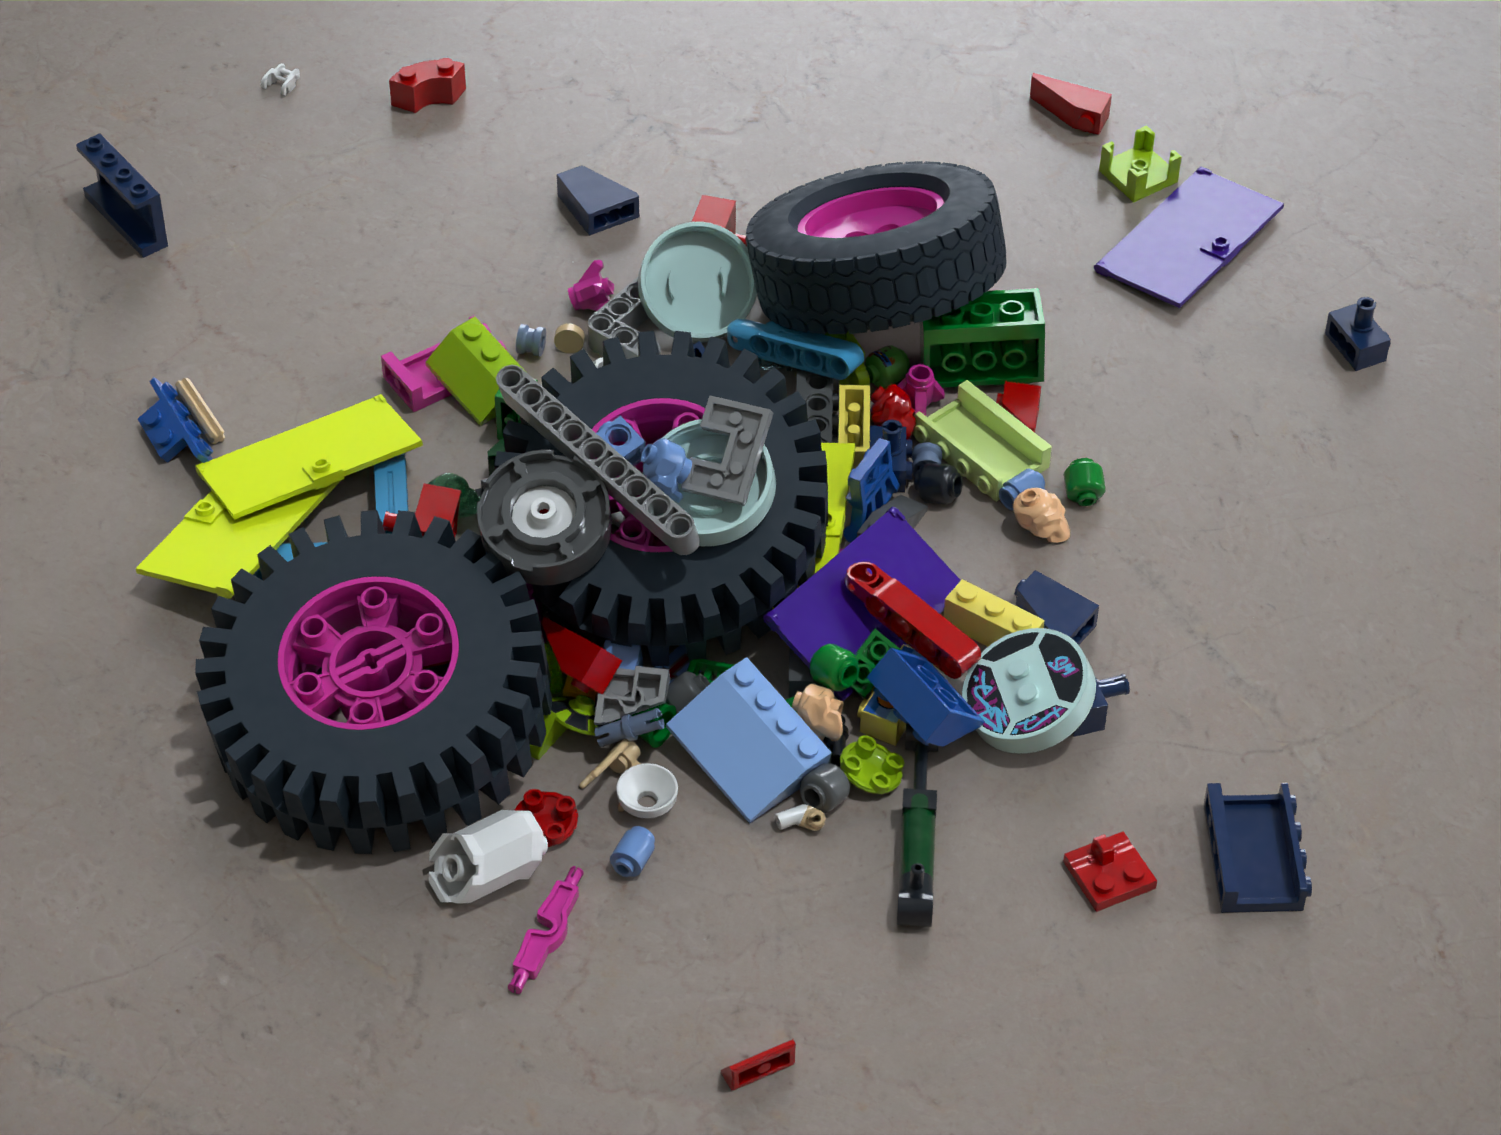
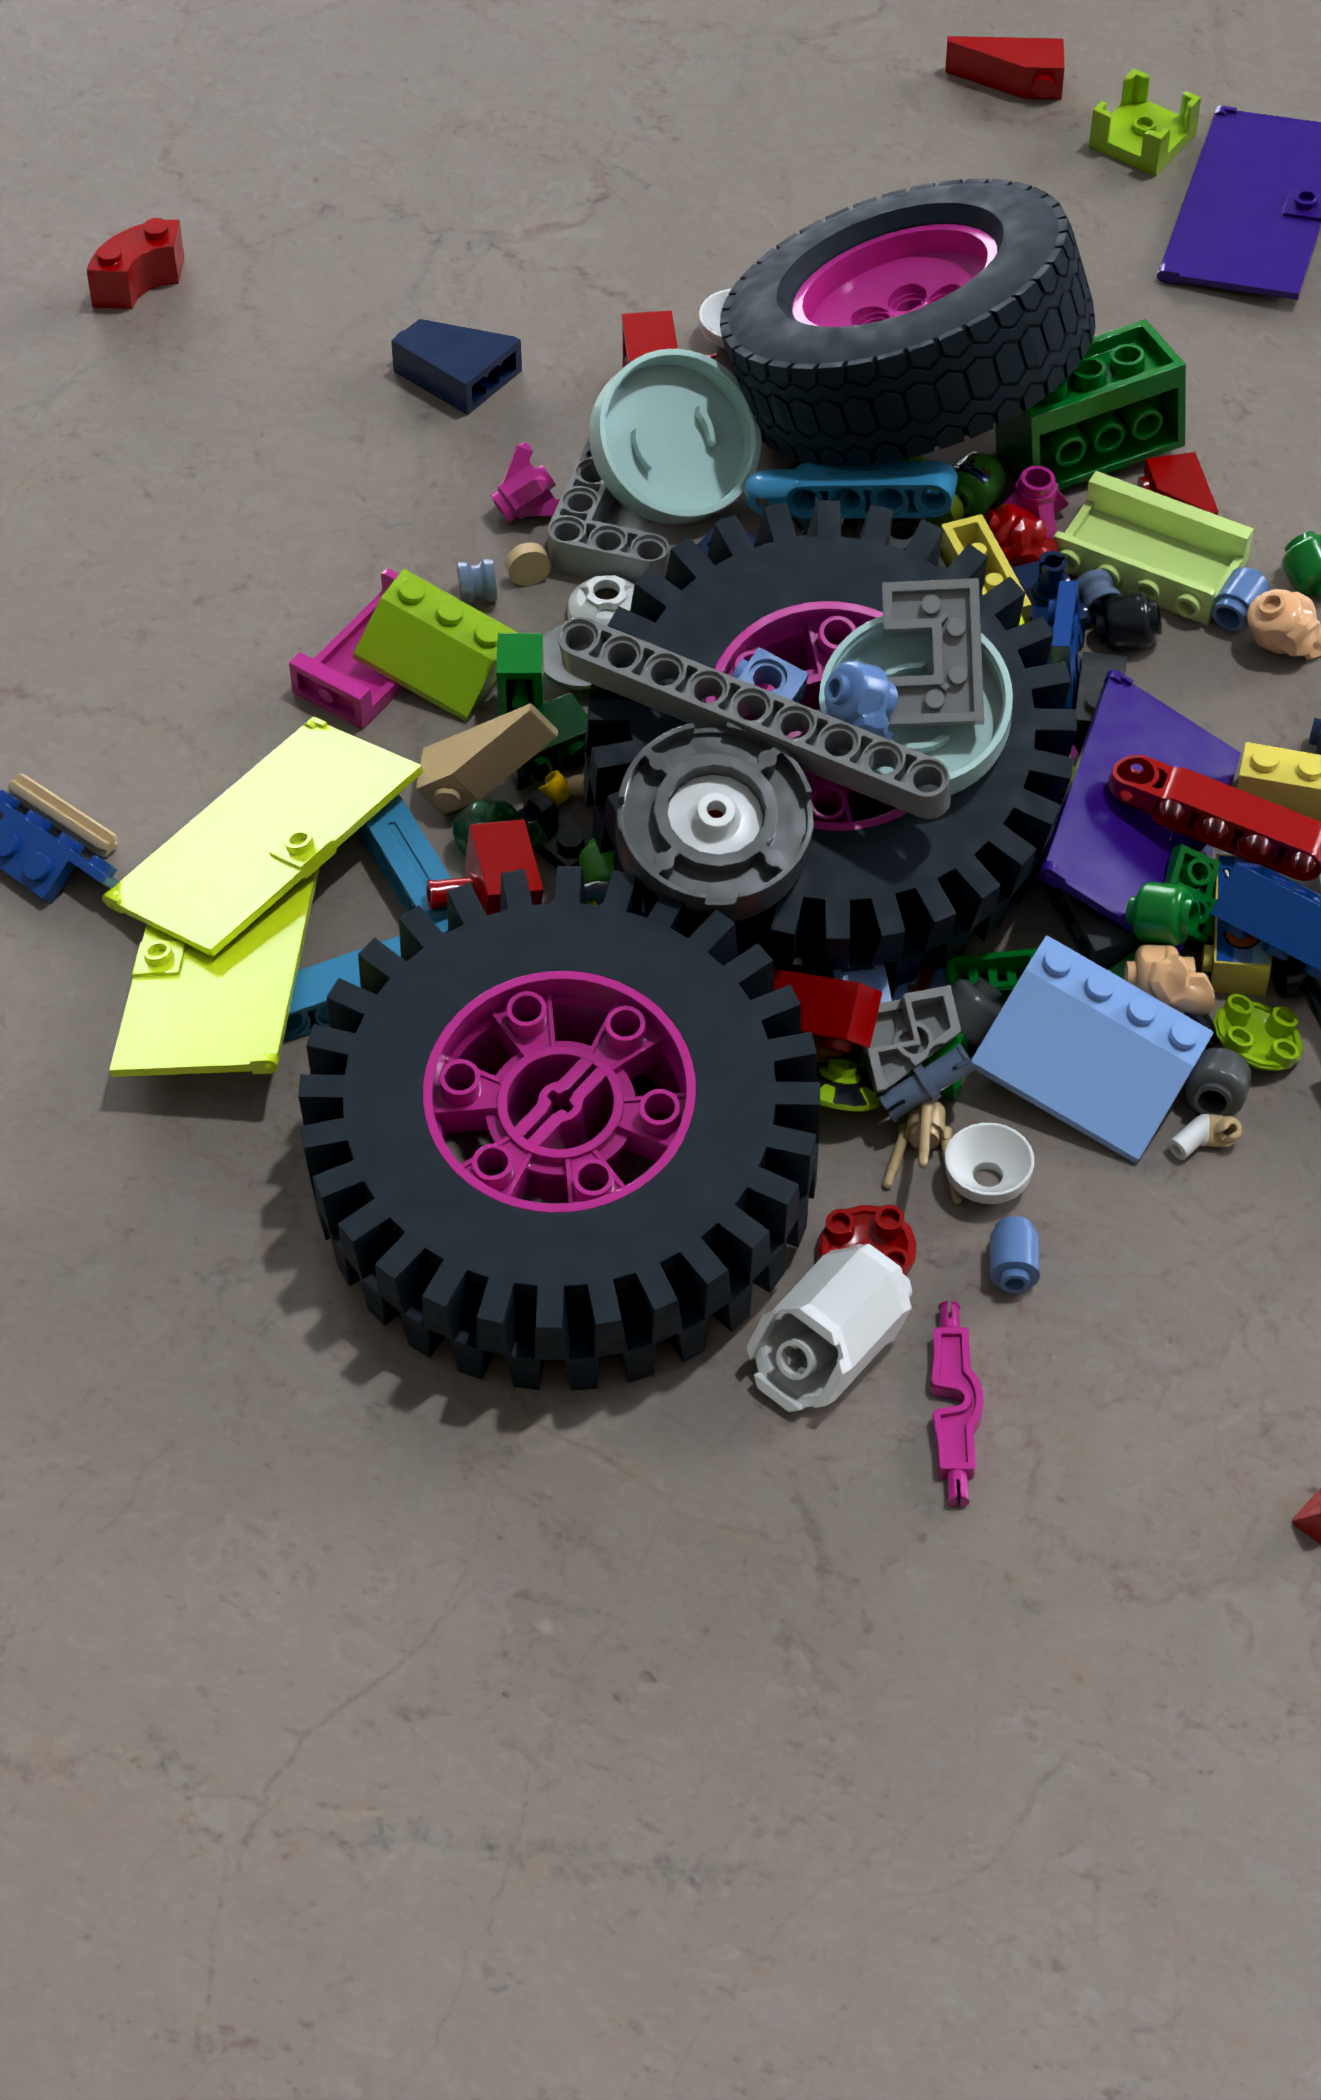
camera: 20 degrees left, 5 degrees up
(462, 447) = (482, 757): none -> tan slope

